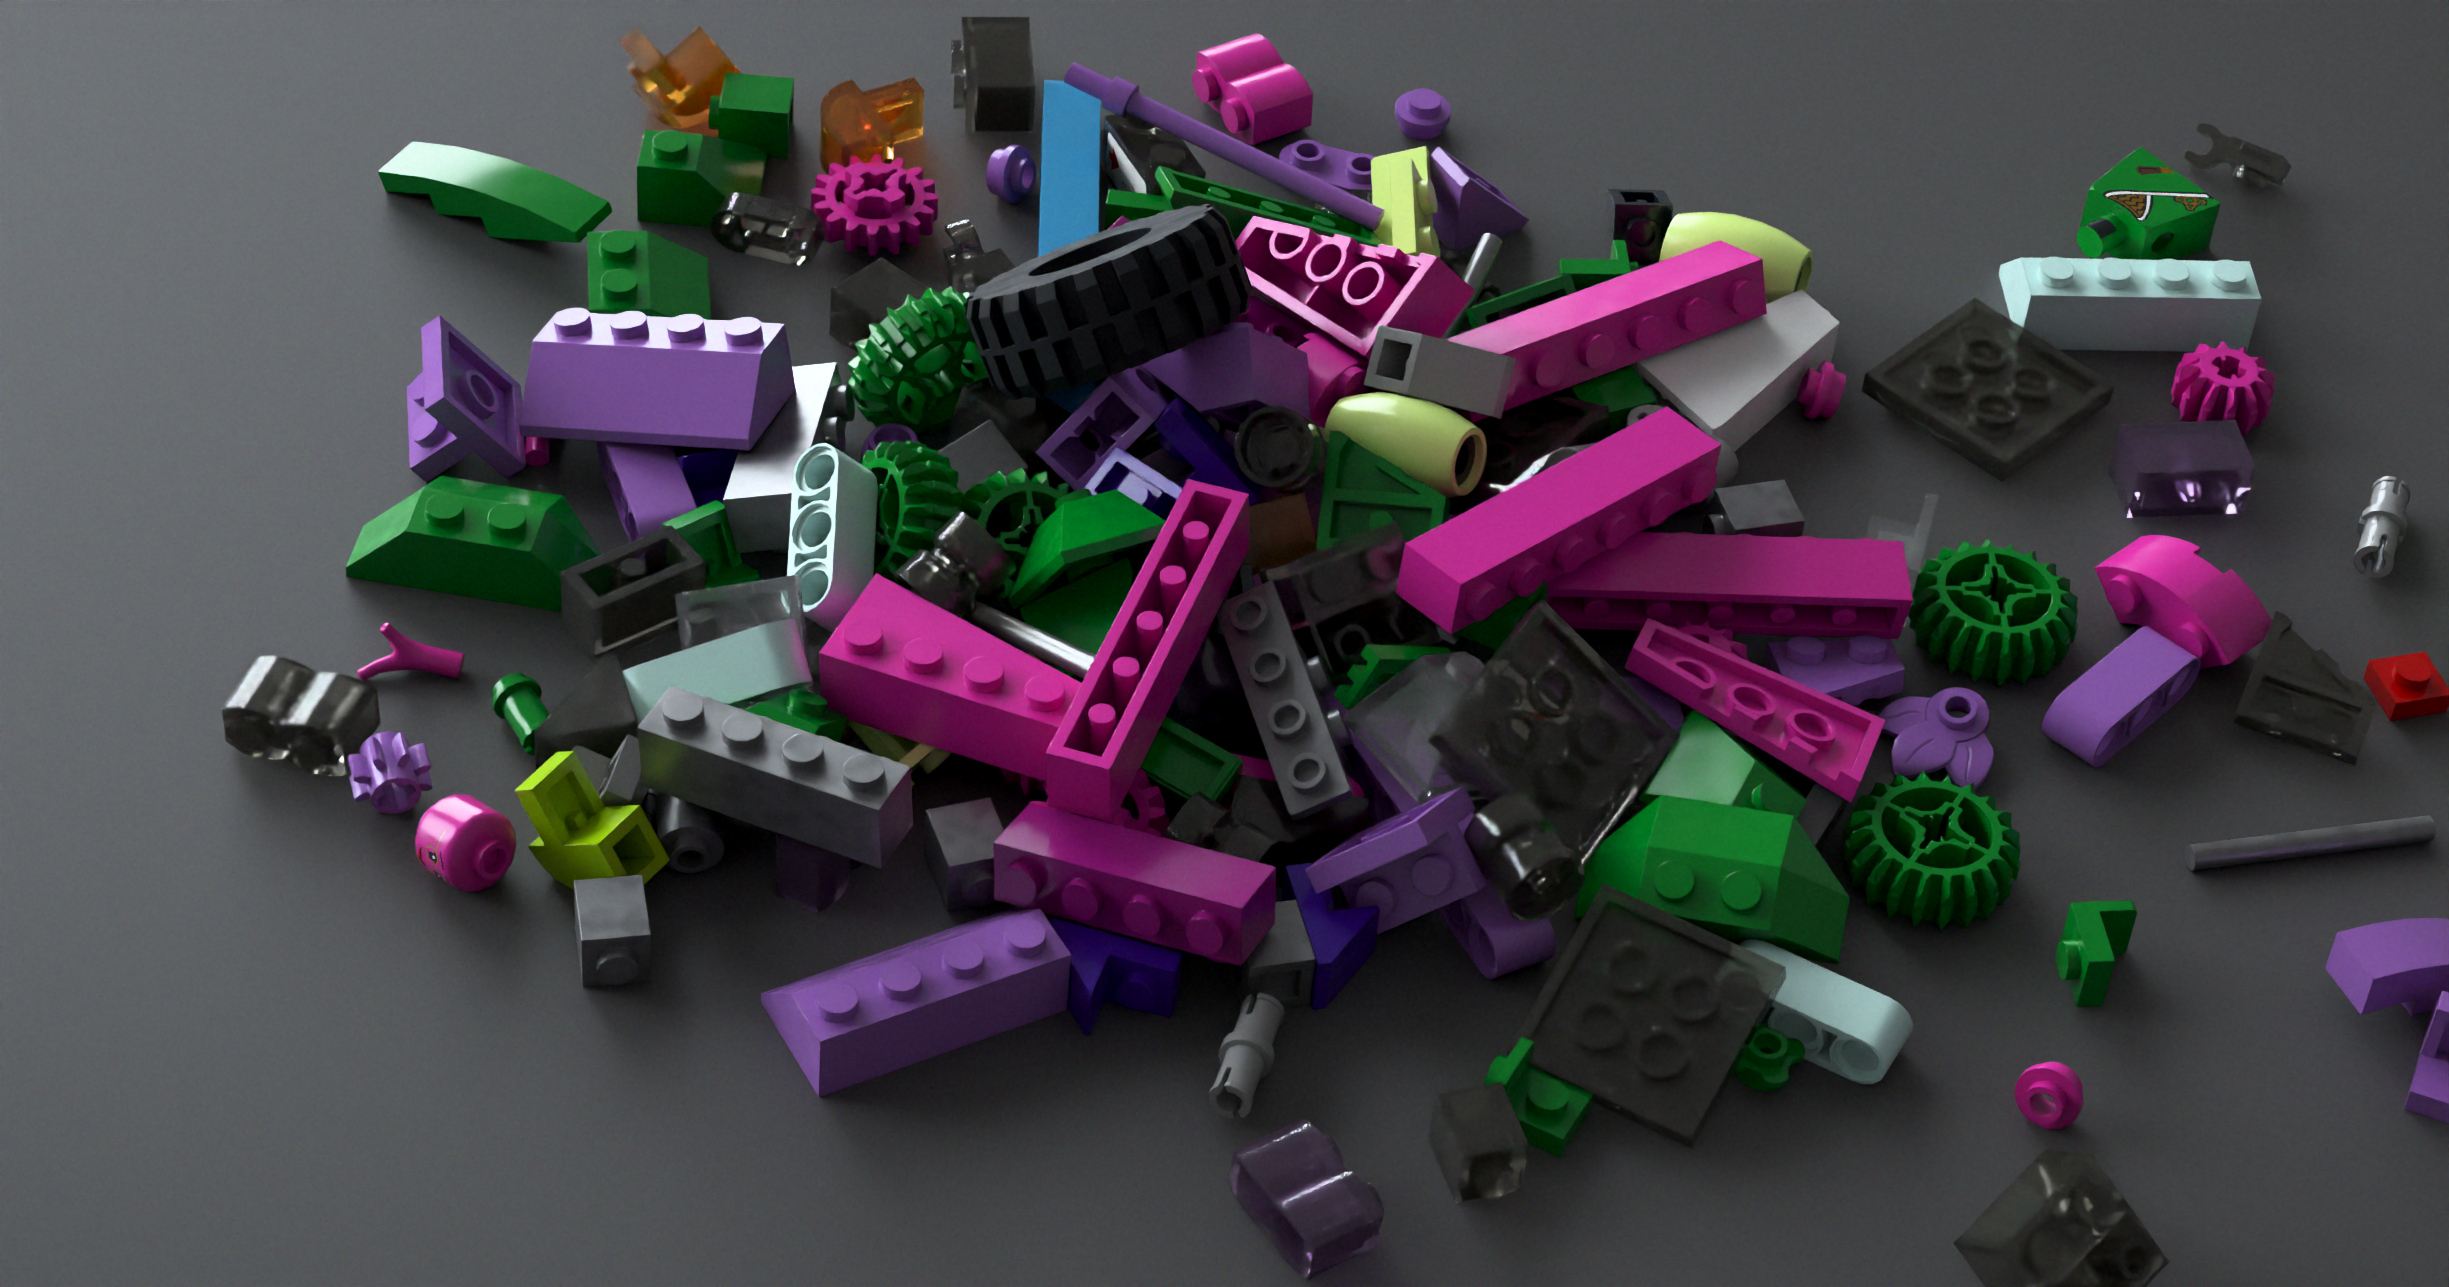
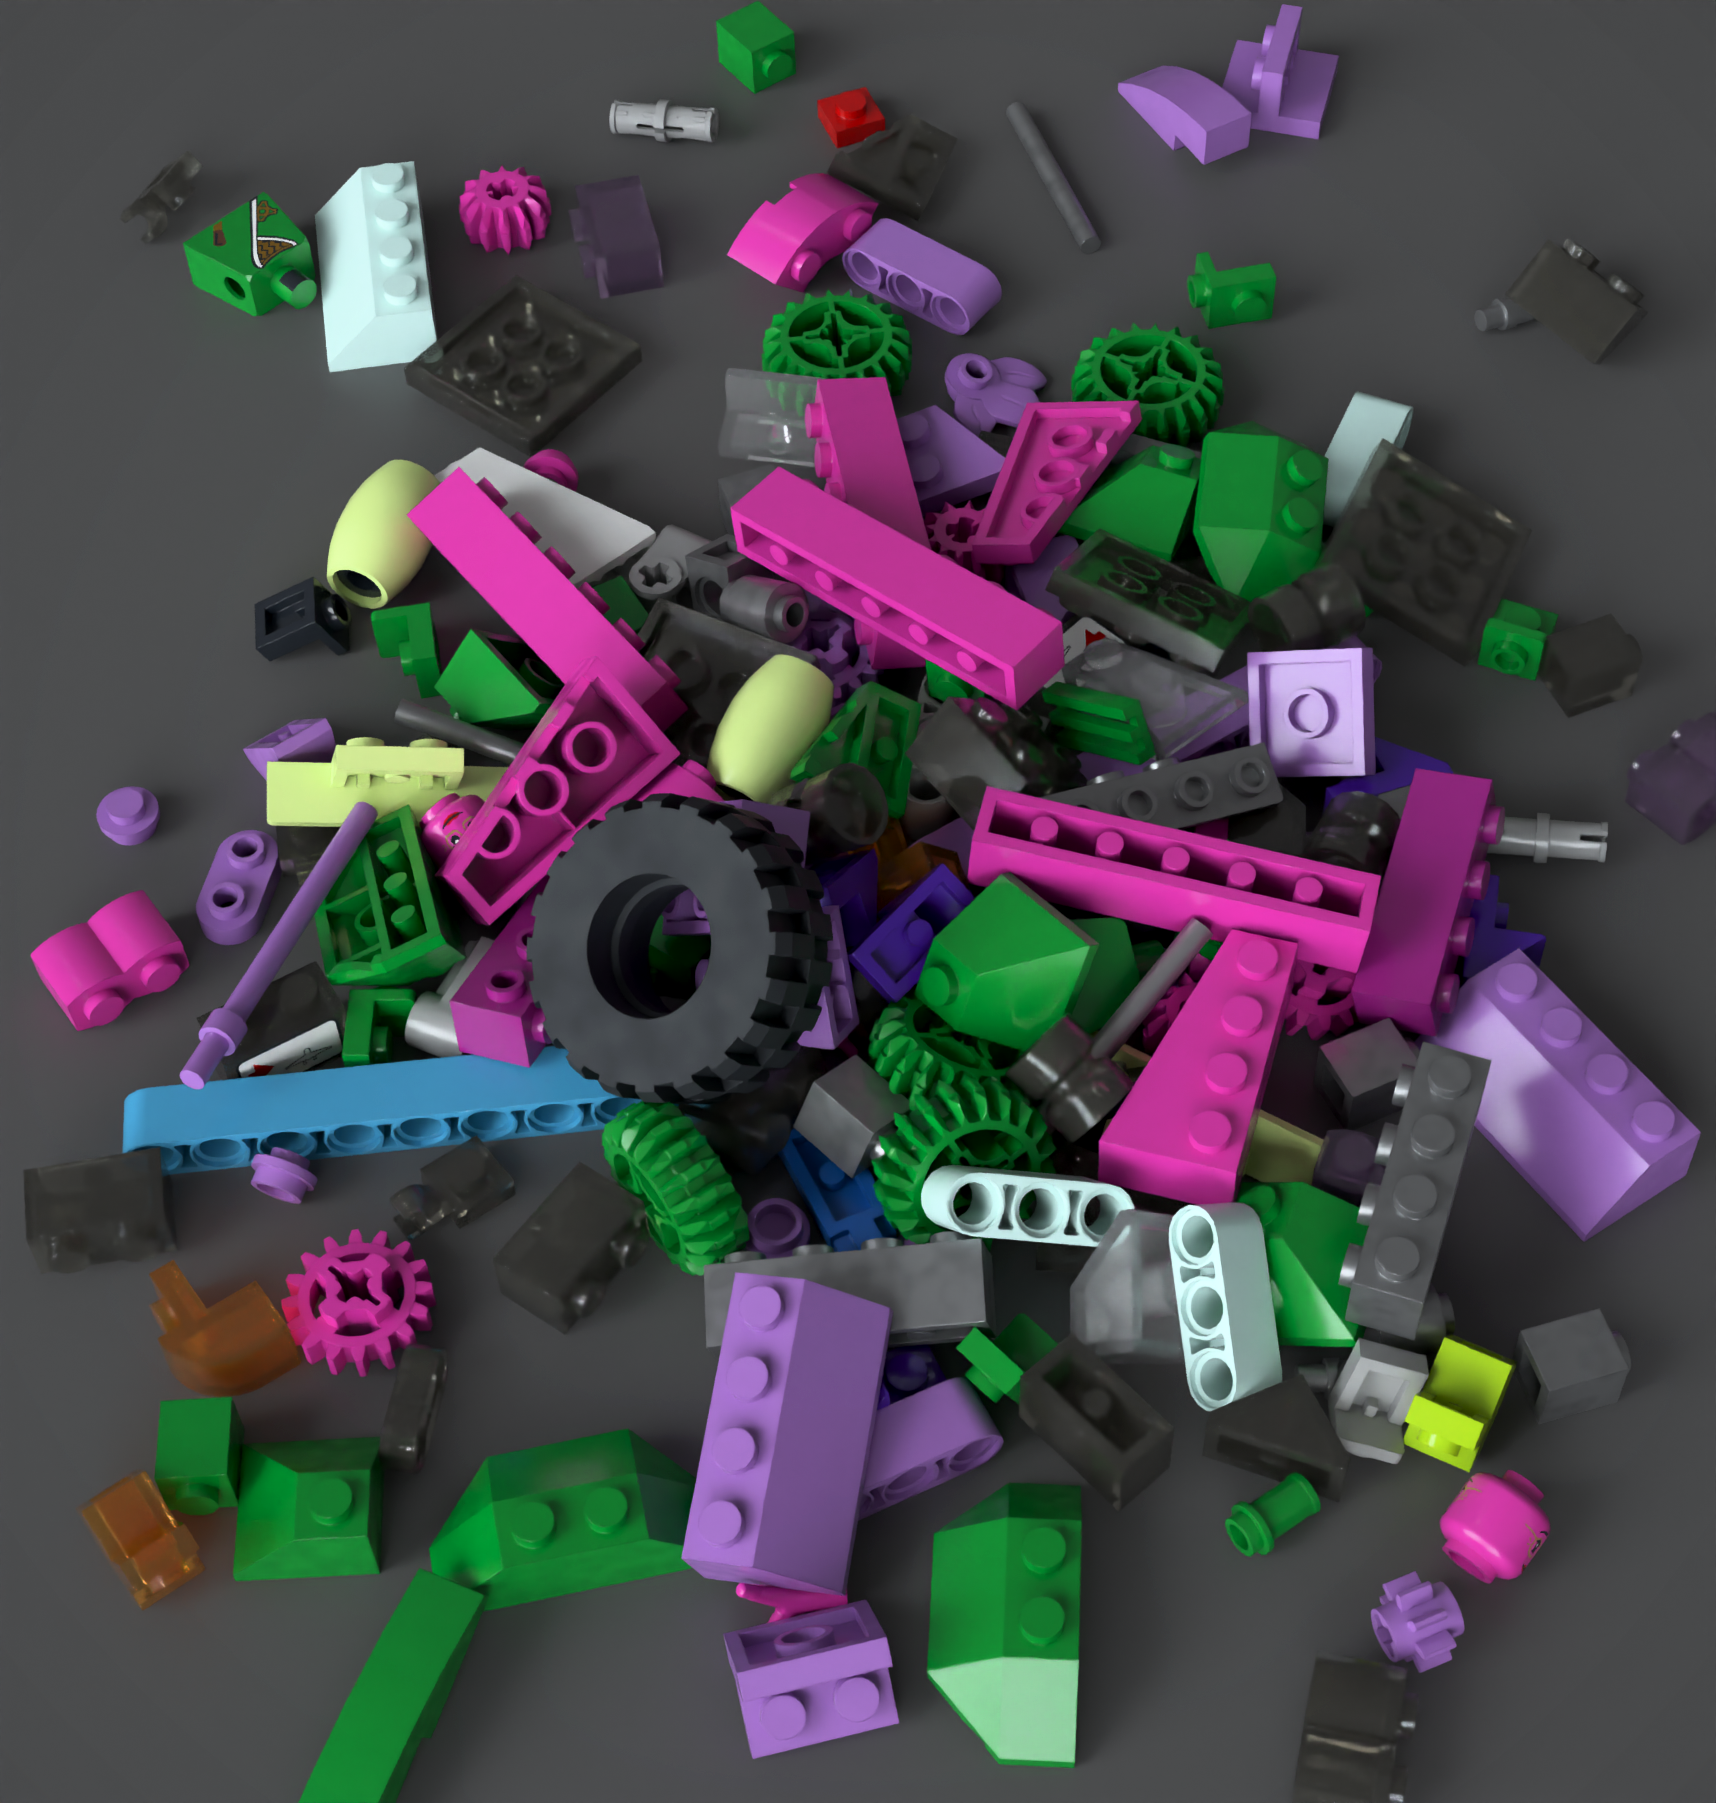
camera: 90 degrees left, 10 degrees up
(413, 656) = (1207, 1653): dark pink bar -> none
(1440, 371) = (701, 687): light grey slope -> none
(2057, 1082) = (1399, 318): dark pink plate -> none

